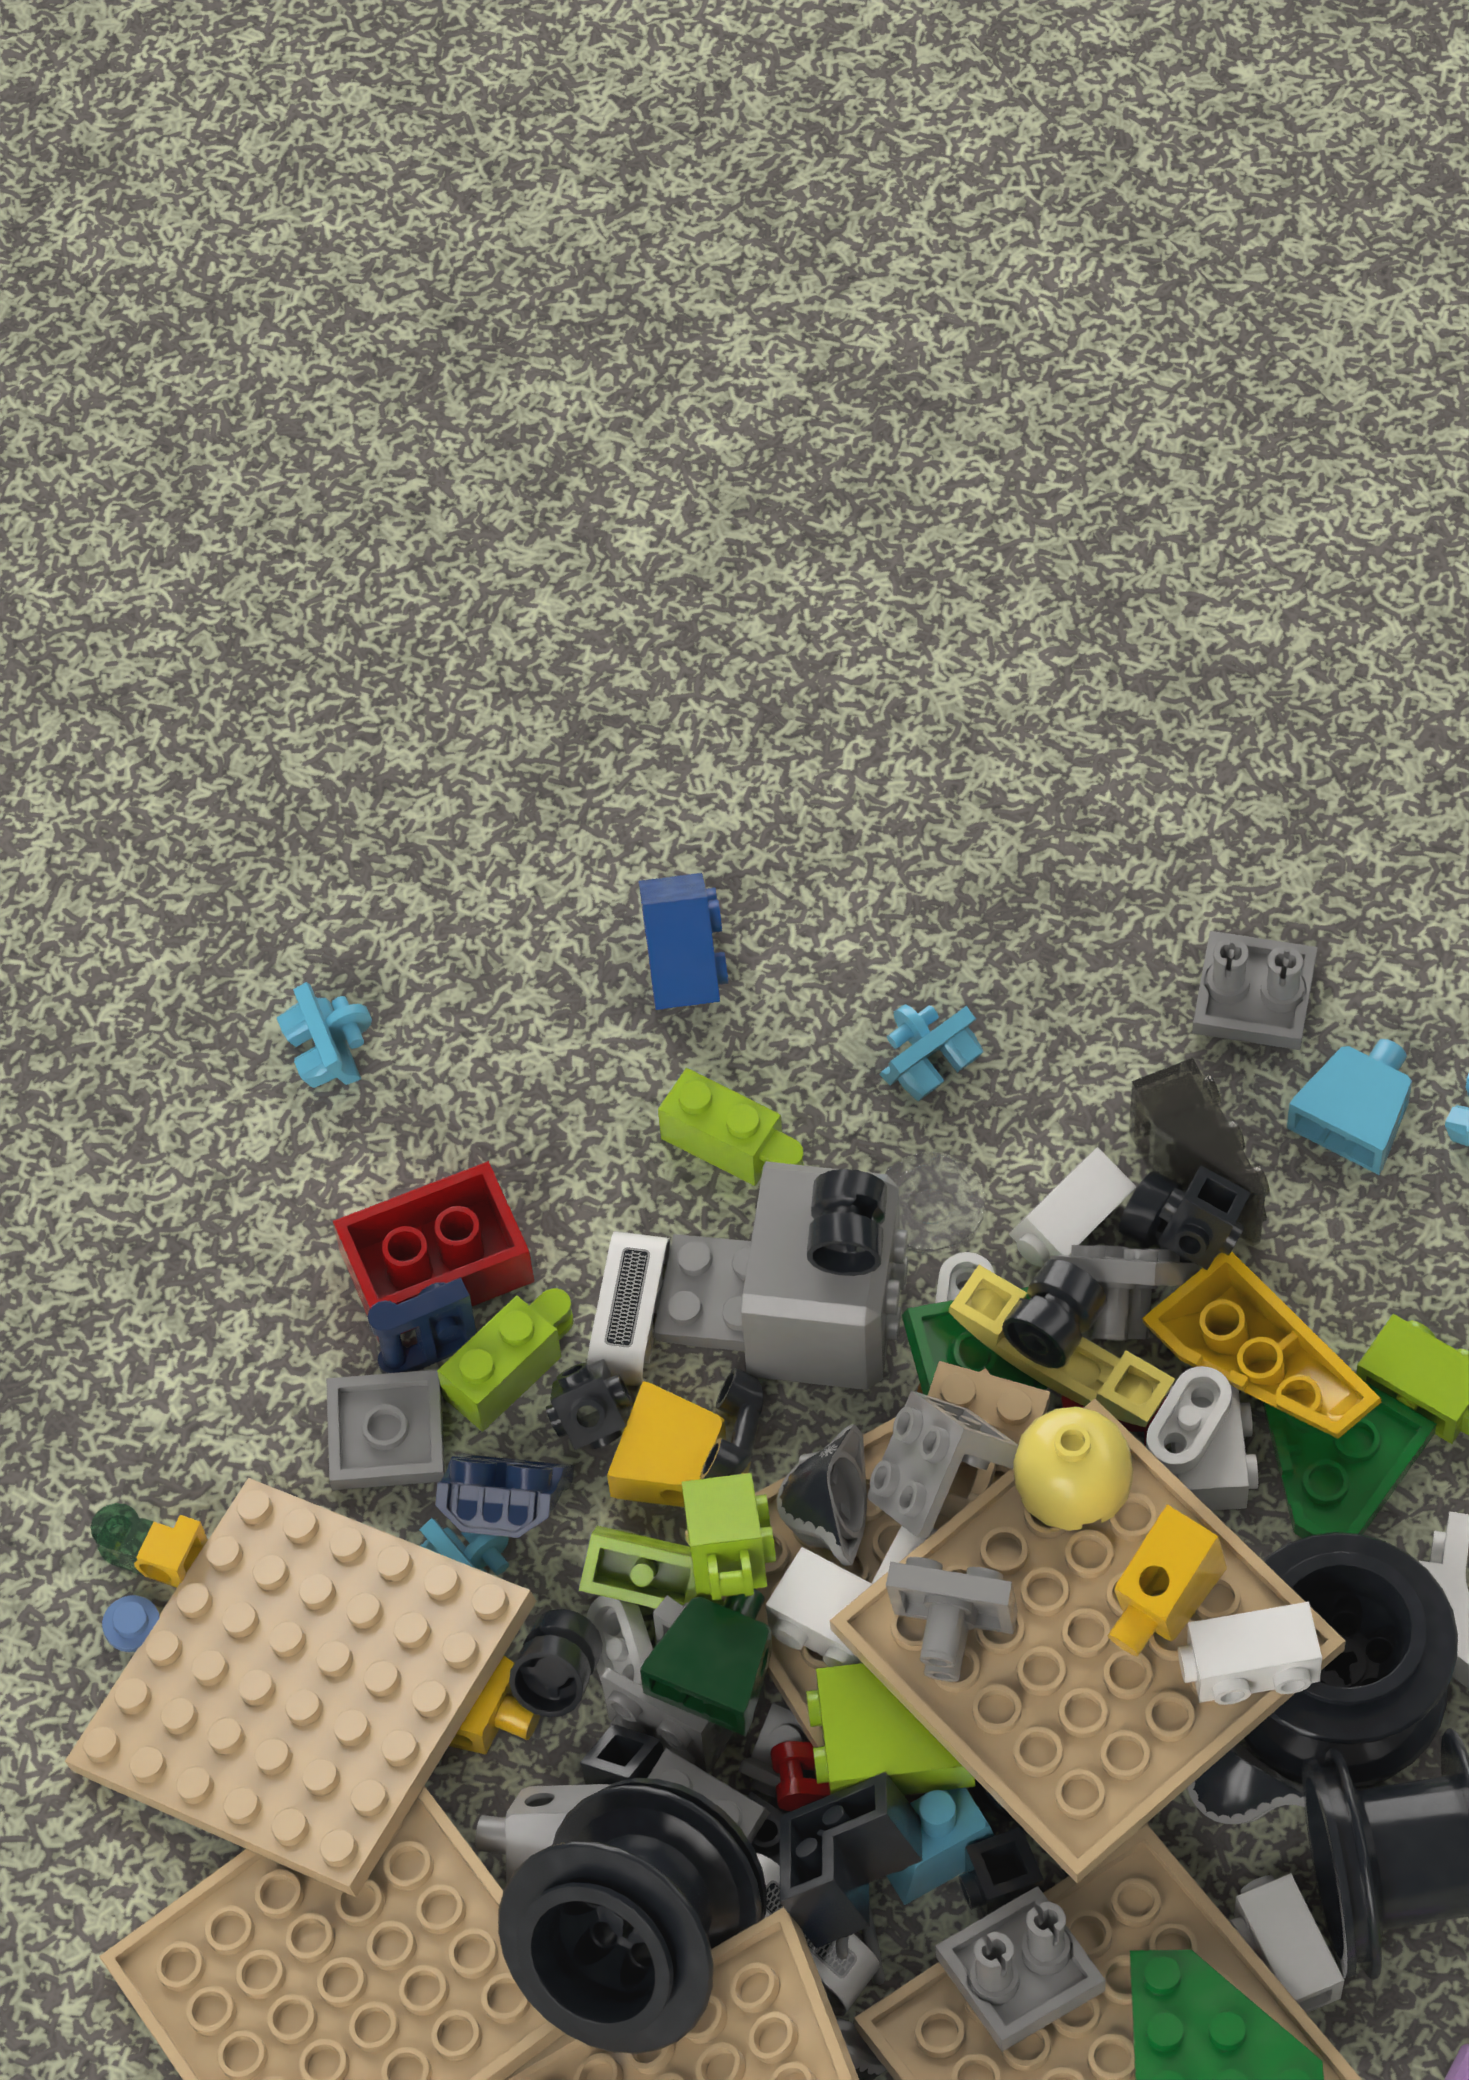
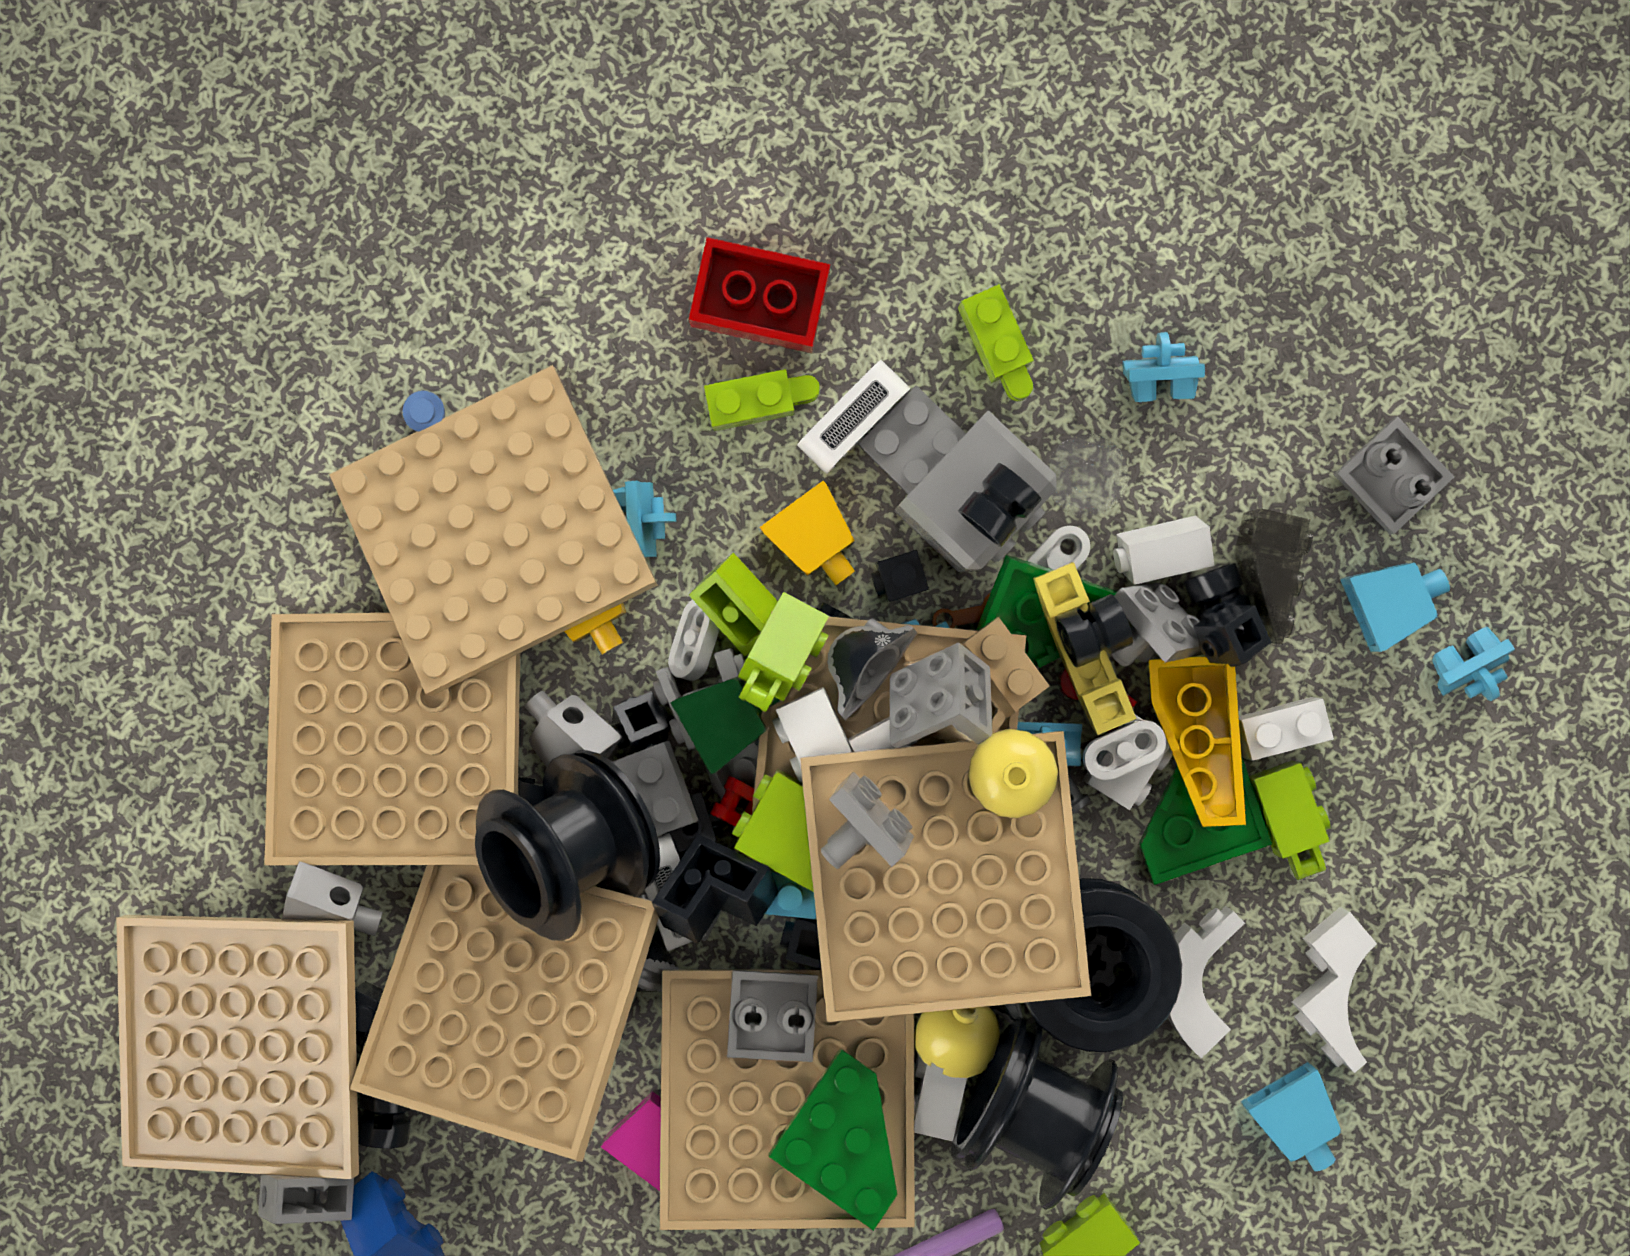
camera: 25 degrees right, 30 degrees up
(146, 1545) = (455, 358): leg -> none
(329, 1029) = (803, 87): medium azure hips -> none
(385, 1430) = (654, 391): light grey plate -> none
(441, 1323) = (726, 350): dark blue plate -> none
(500, 1493) = (690, 491): dark blue slope -> none
(555, 1663) = (646, 626): black wheel -> none
(592, 1387) = (781, 471): black brick -> none
(679, 940) = (1067, 177): blue brick -> none
(743, 1399) = (880, 526): black bar -> none
(803, 1422) = (899, 576): none -> black brick
(1173, 1559) = (1024, 889): yellow torso -> none
(1251, 1848) = (958, 1040): none -> light yellow cylinder
(1252, 1654) = (1026, 974): white brick -> none
(1351, 1294) = (1284, 728): none -> white brick

